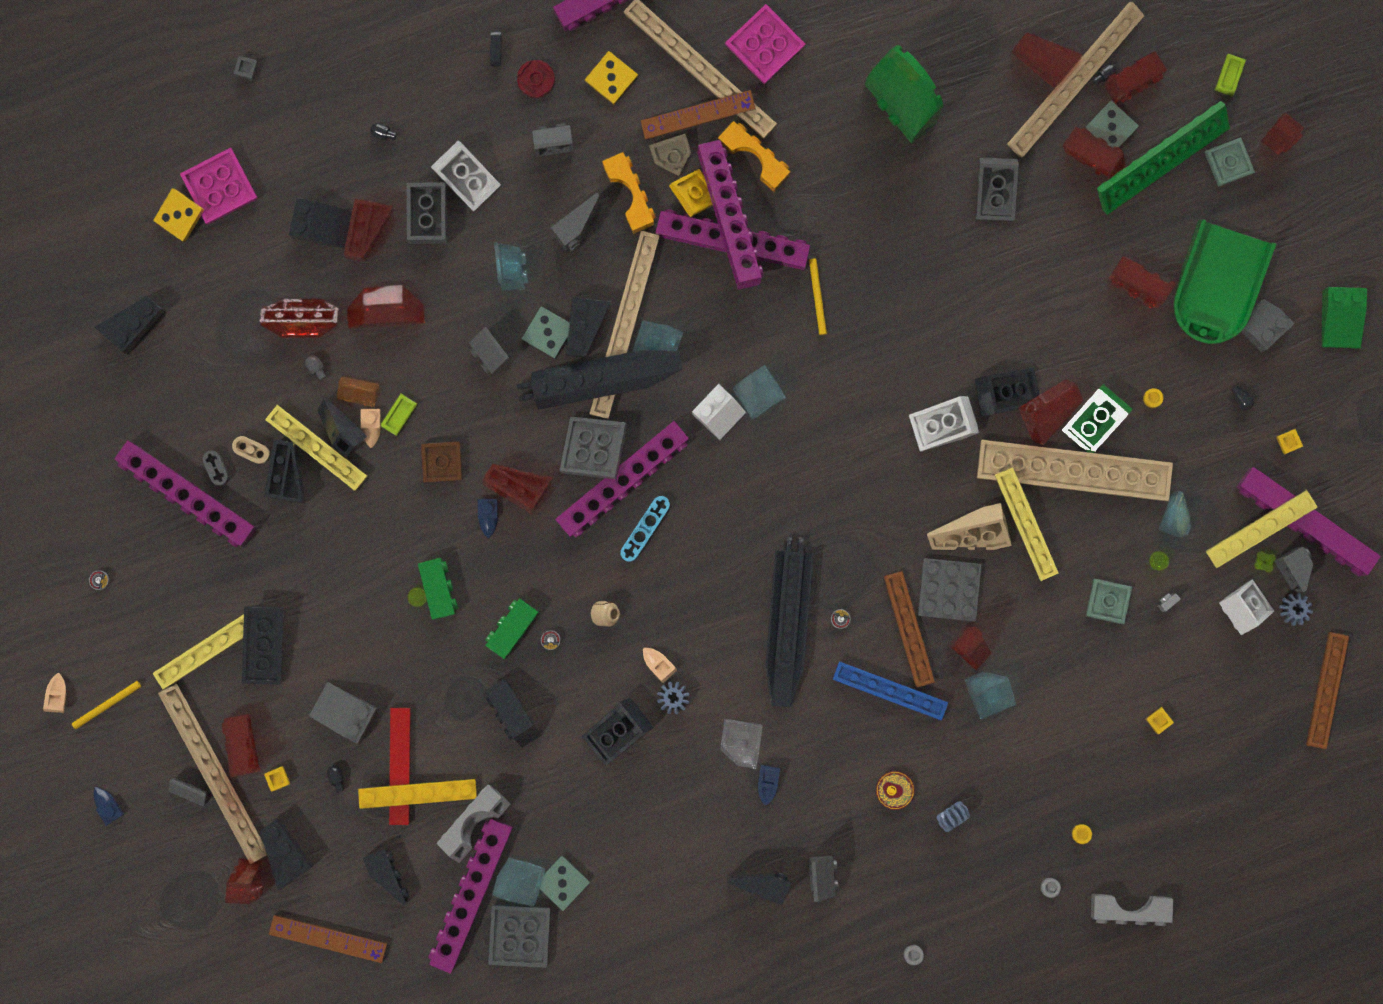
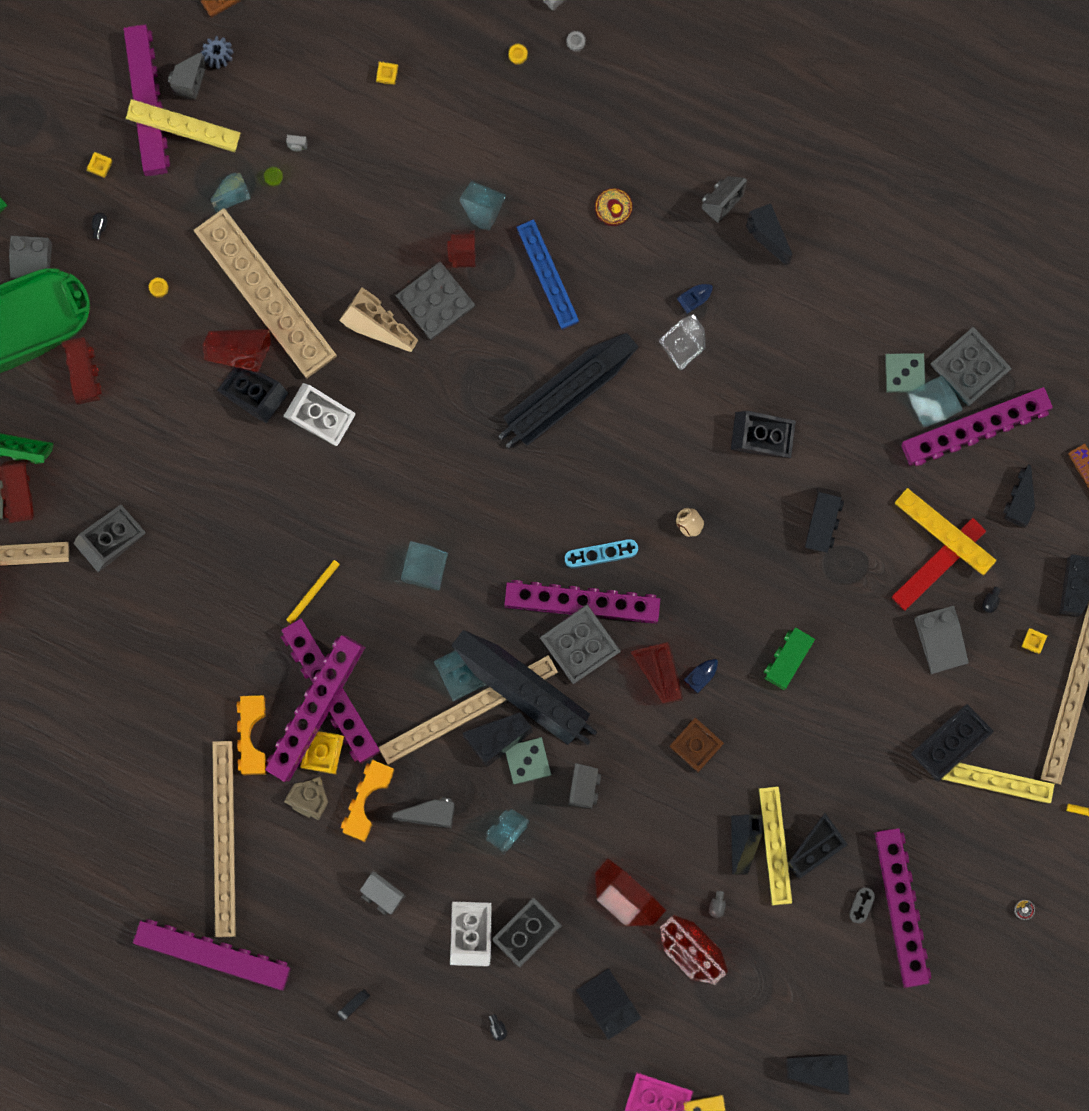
camera: 135 degrees left, 5 degrees down
(240, 745) = (1038, 688): clear red wedge -> none
(251, 450) = (825, 891): tan plate -> none
(357, 391) = (705, 857): clear orange slope -> none
(365, 228) = (580, 968): clear red wedge -> none
(371, 425) = (720, 823): light nougat plate -> none
(398, 414) = (692, 810): lime tile -> none
(417, 597) = (809, 668): clear neon green plate -> none
(457, 839) = (950, 472): light grey arch -> none
(511, 628) = (765, 578): green brick -> none
(535, 78) = (347, 954): dark red tile -> none
(550, 640) = (745, 544): tile -> none
(611, 77) = (293, 898): yellow tile -> none
(658, 664) = (687, 452): light nougat plate -> none
(667, 700) = (693, 418): sand blue gear -> none
(698, 114) = (261, 805): dark orange tile -> none
(719, 412) = (466, 581): white slope -> none
(765, 44) = (160, 808): dark pink plate -> none
(840, 619) = (530, 356): tile -> none
(905, 93) = (104, 663): green windscreen -> none
(909, 629) = (490, 303): dark orange tile -> none
(913, 955) = (714, 89): light grey tile -> none
(953, 816) = (592, 149): sand blue gear -> none
(1026, 524) = (336, 290): light yellow plate -> none
(1097, 419) = (212, 310): slope -> none
(1108, 601) = (336, 184): sand green tile -> none
(1246, 607) = (248, 86): white slope -> none
(1261, 556) = (208, 104): clear neon green plate -> none

